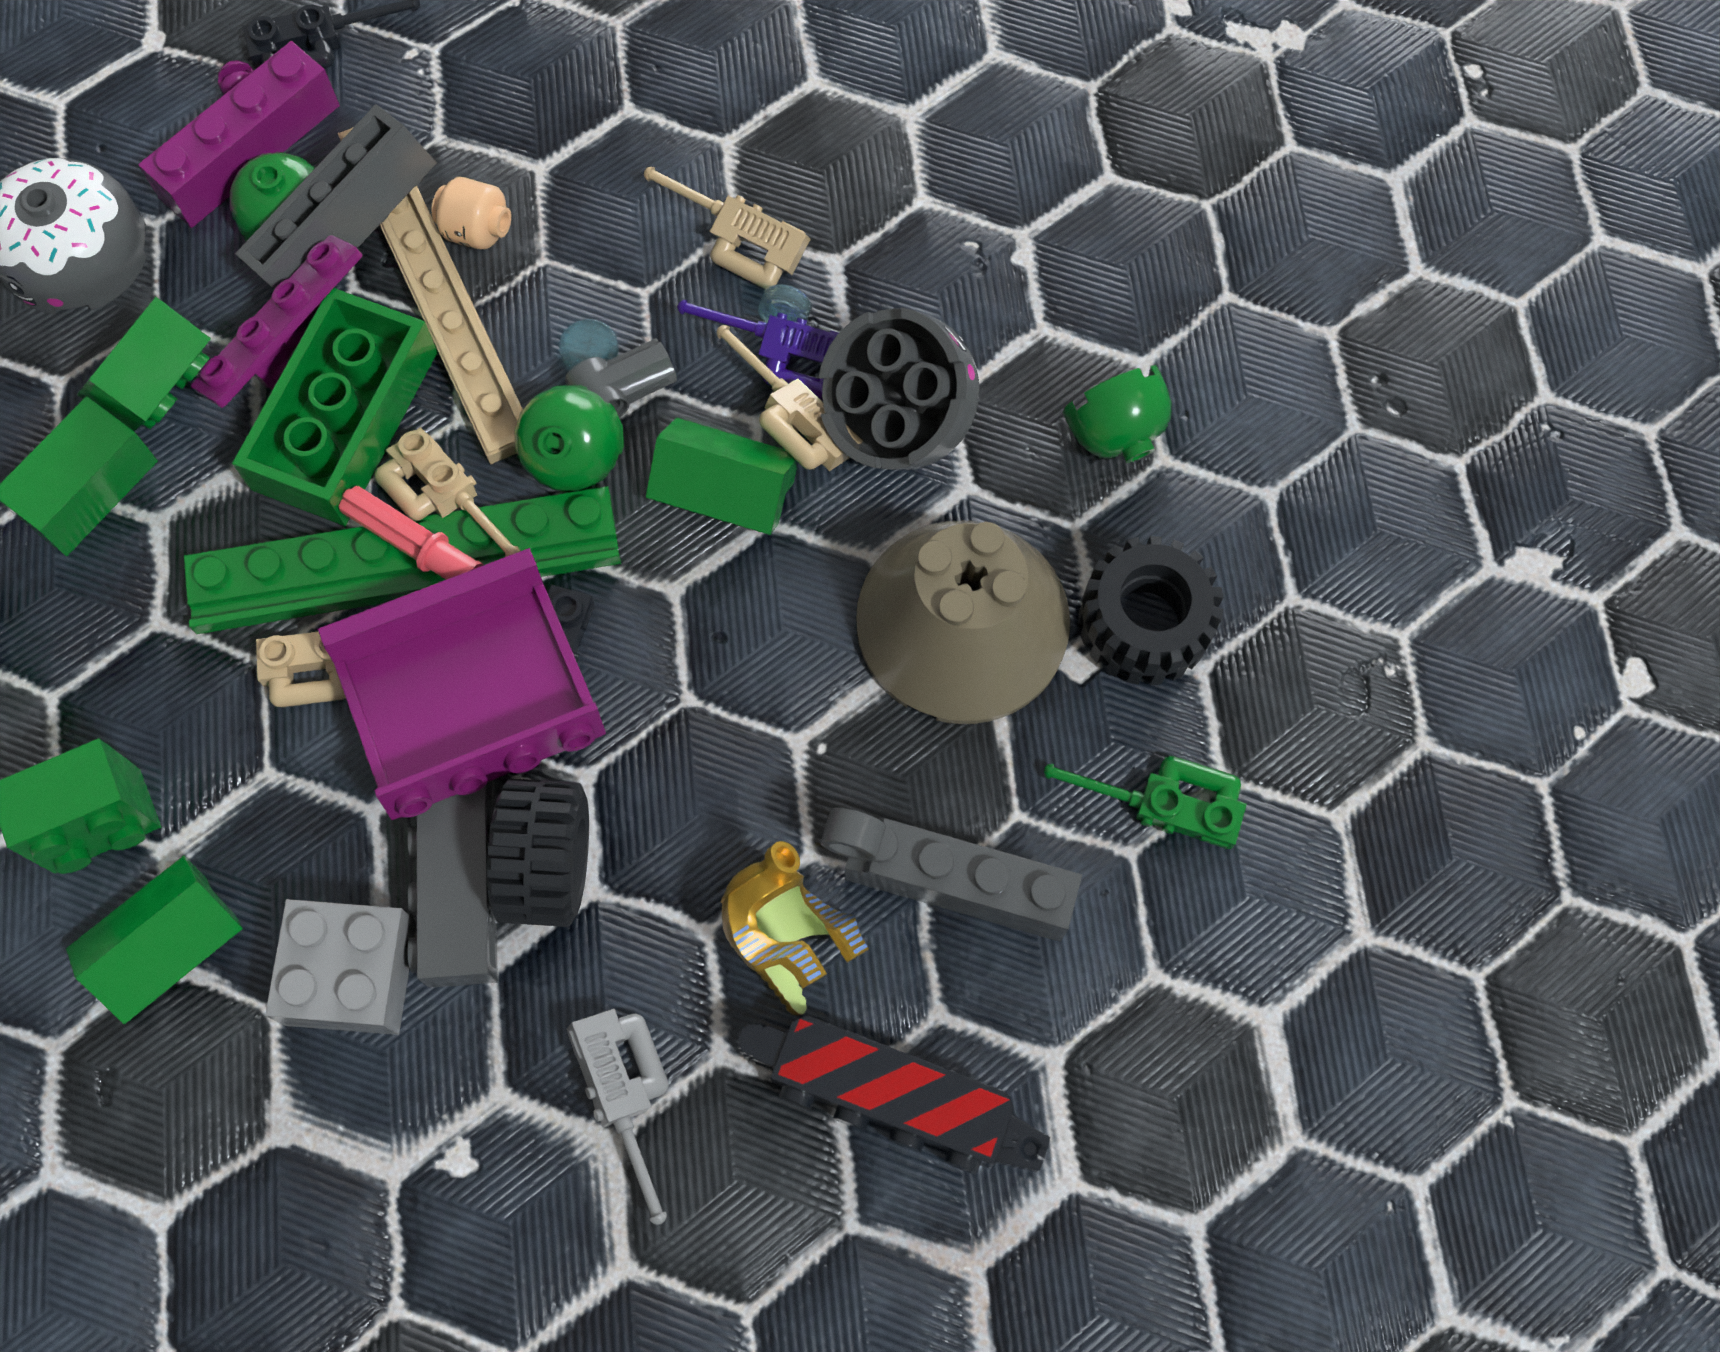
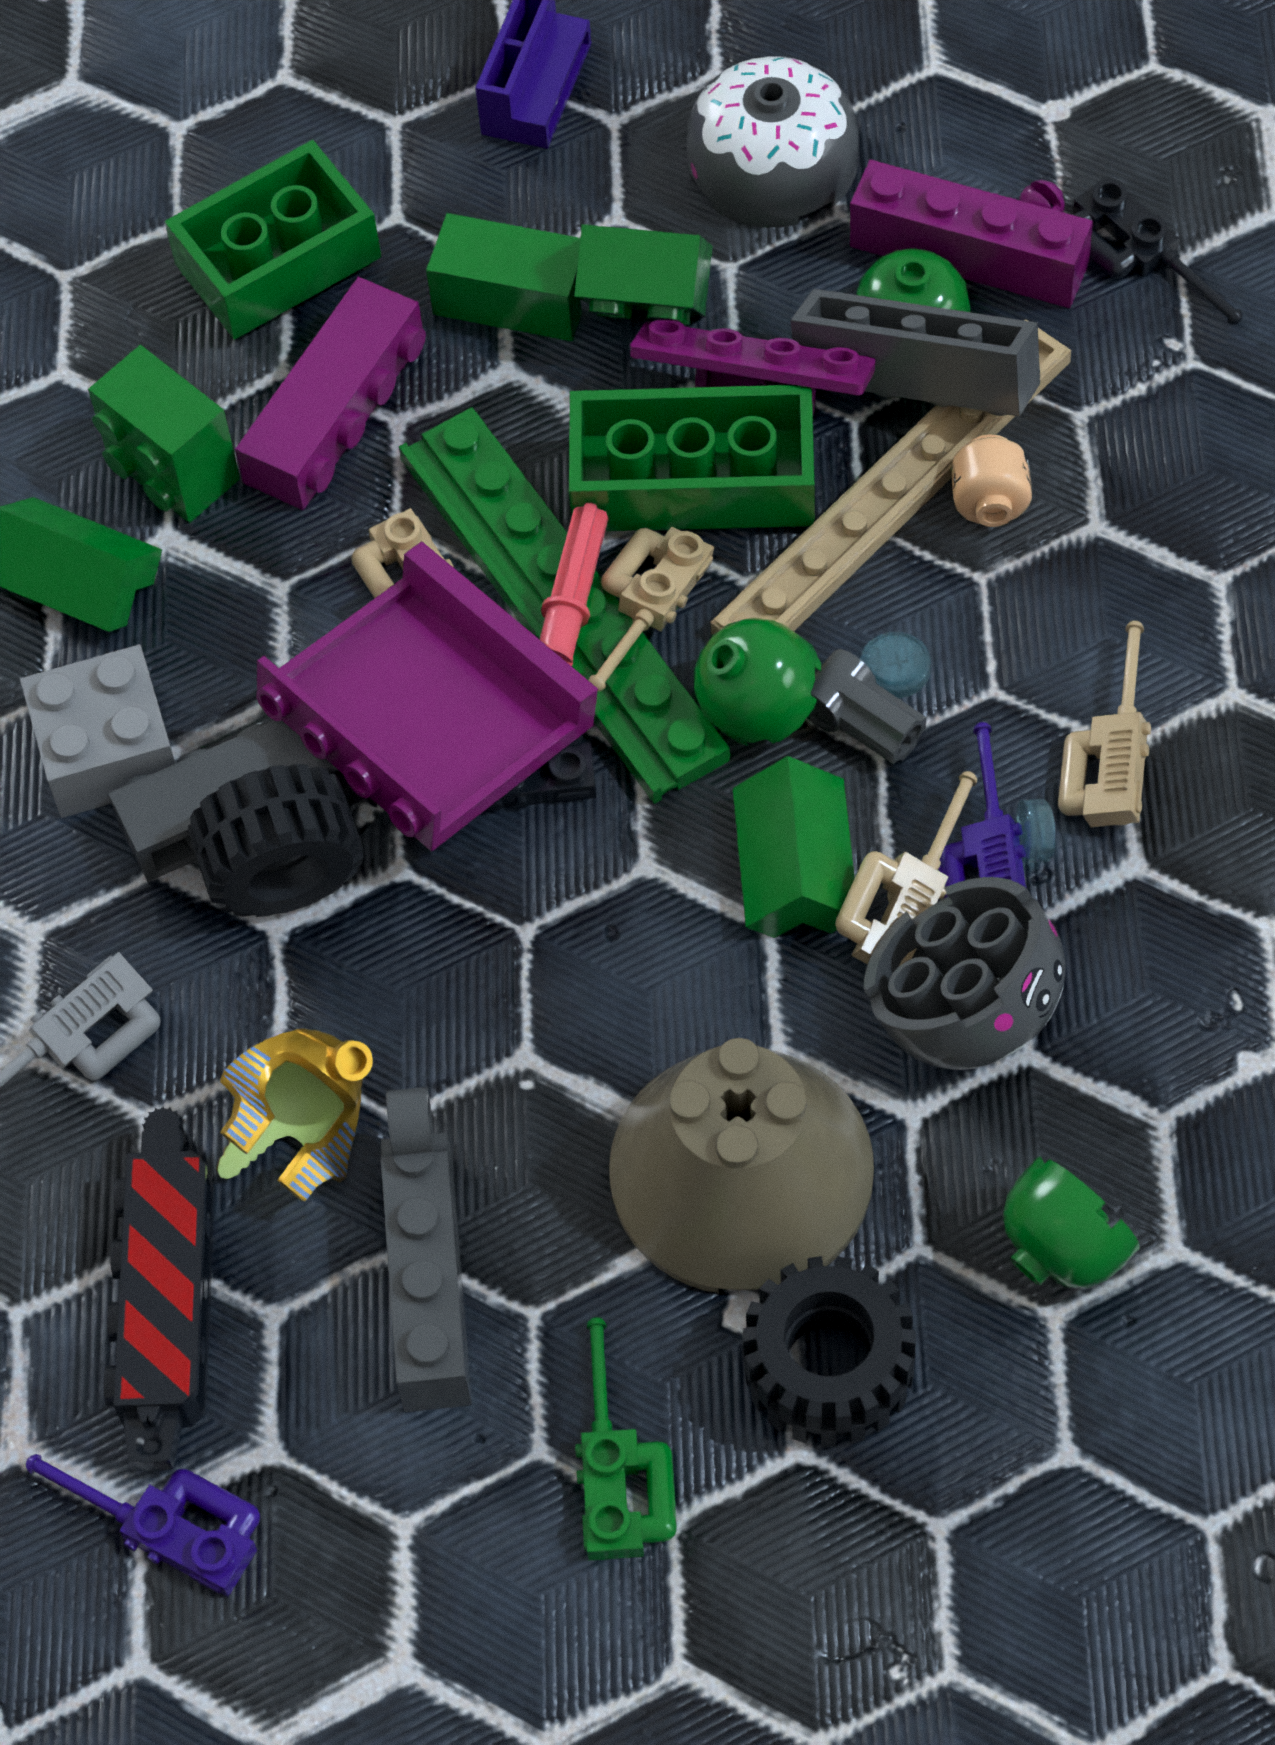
camera: 75 degrees right, 10 degrees down
(106, 660) = (331, 394): none -> magenta brick
(1093, 1168) = (157, 1528): none -> dark purple piece

